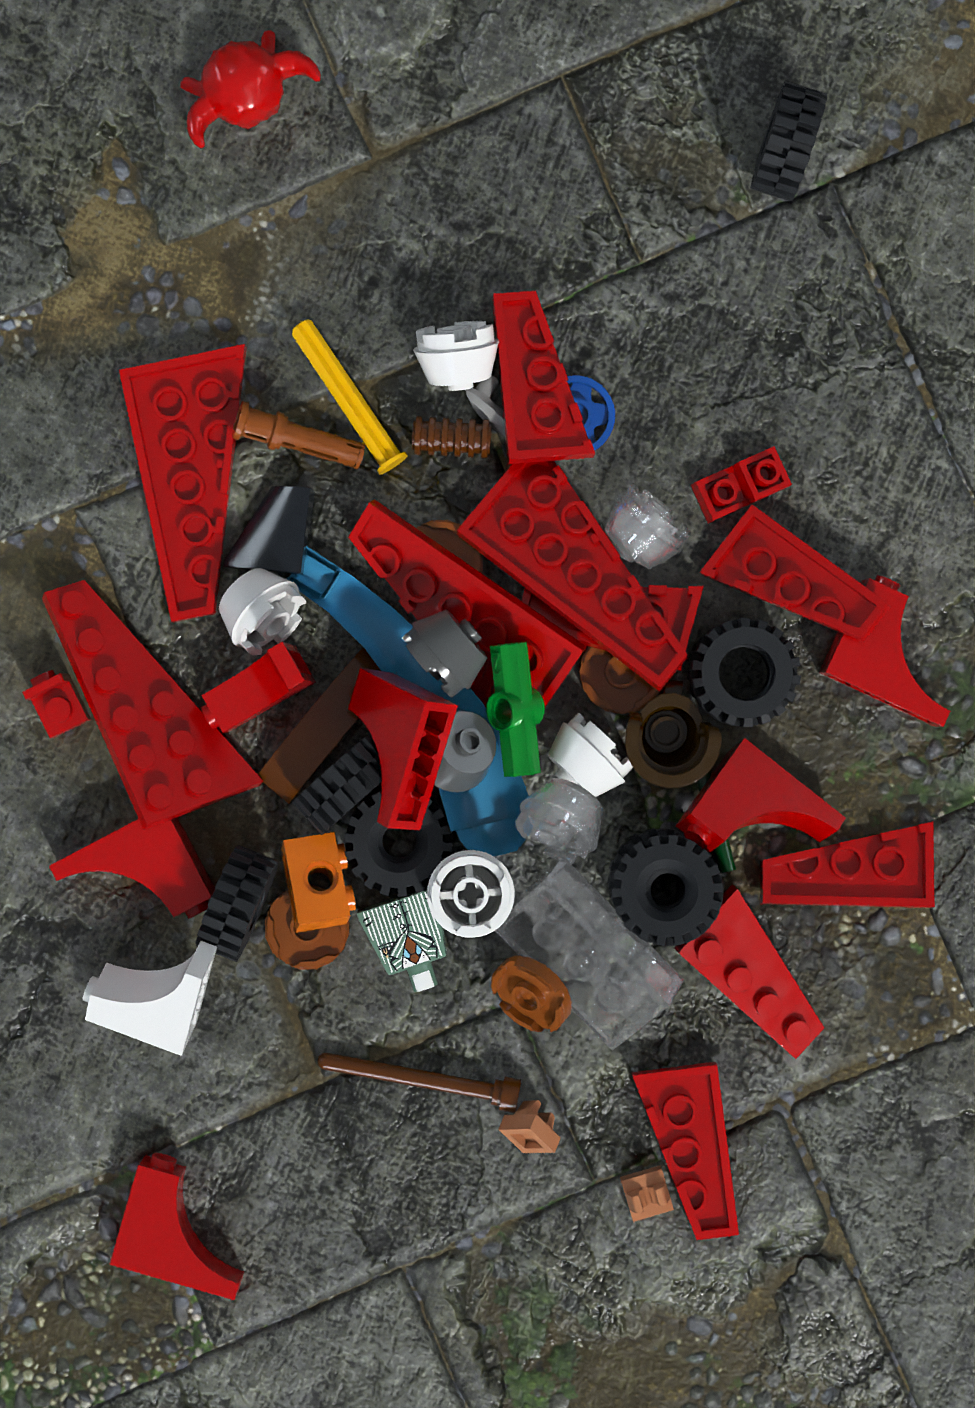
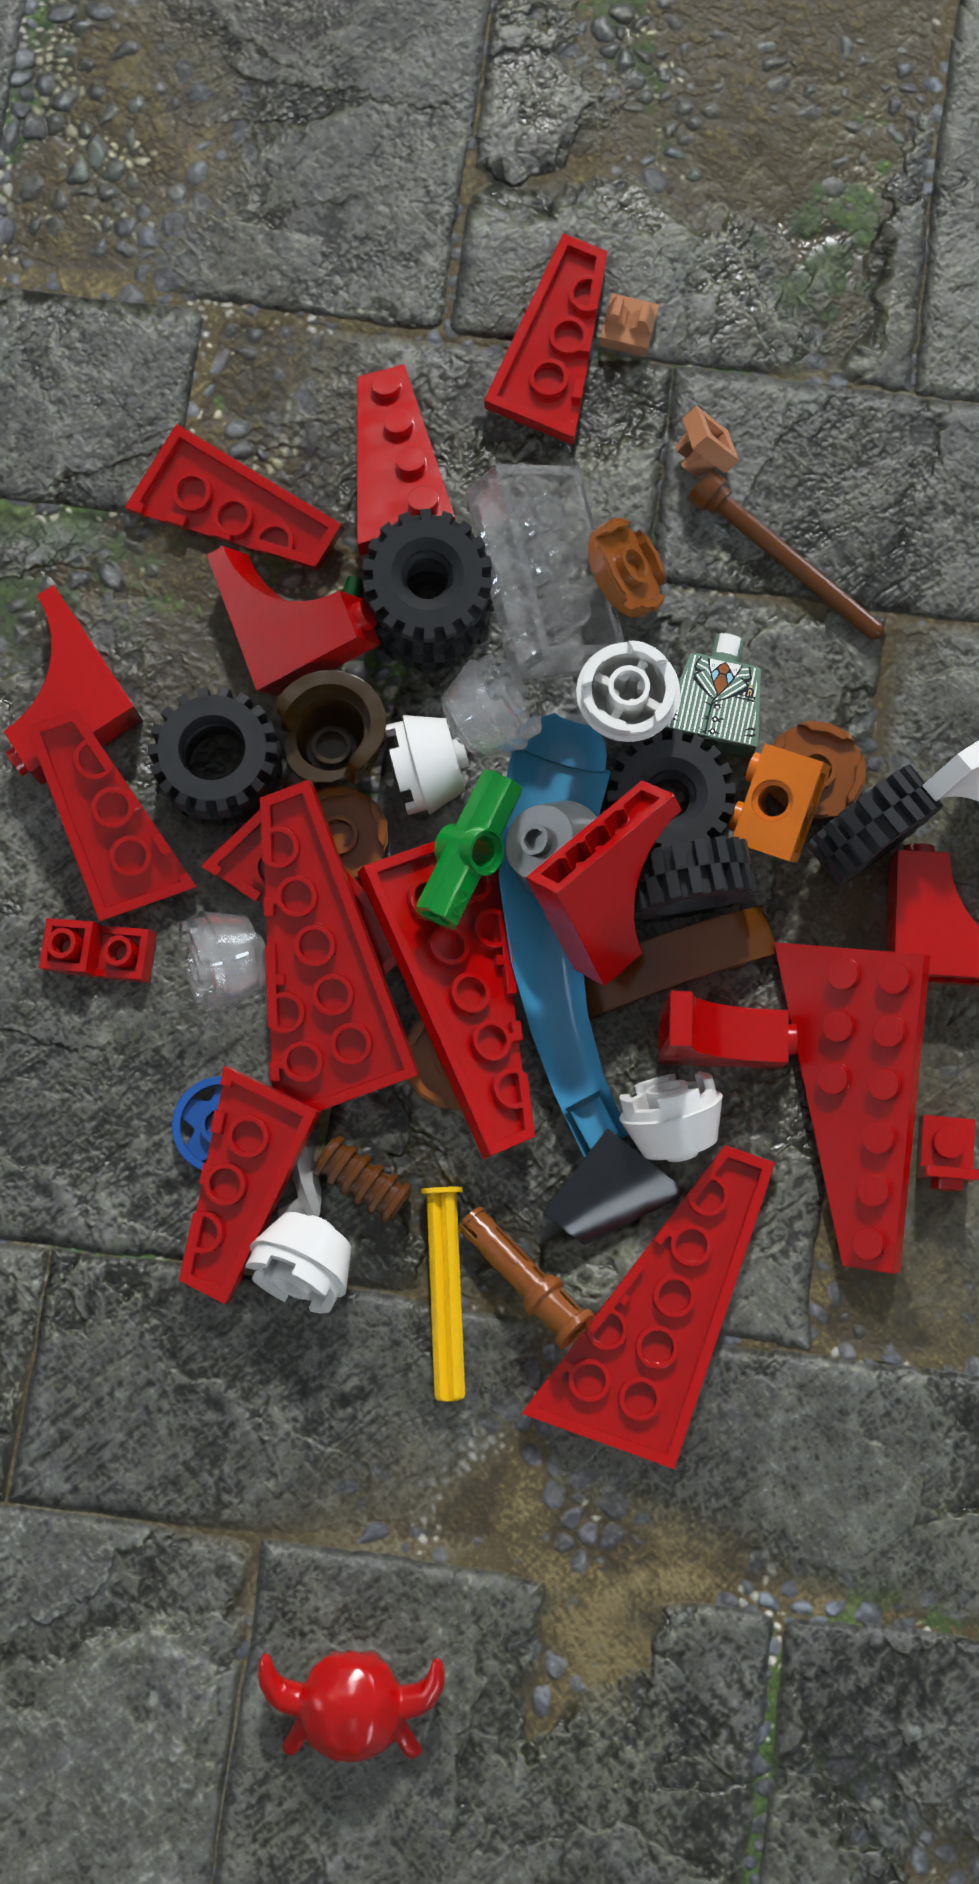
camera: 145 degrees left, 10 degrees down
(447, 650) = (502, 949): dark grey cone -> none

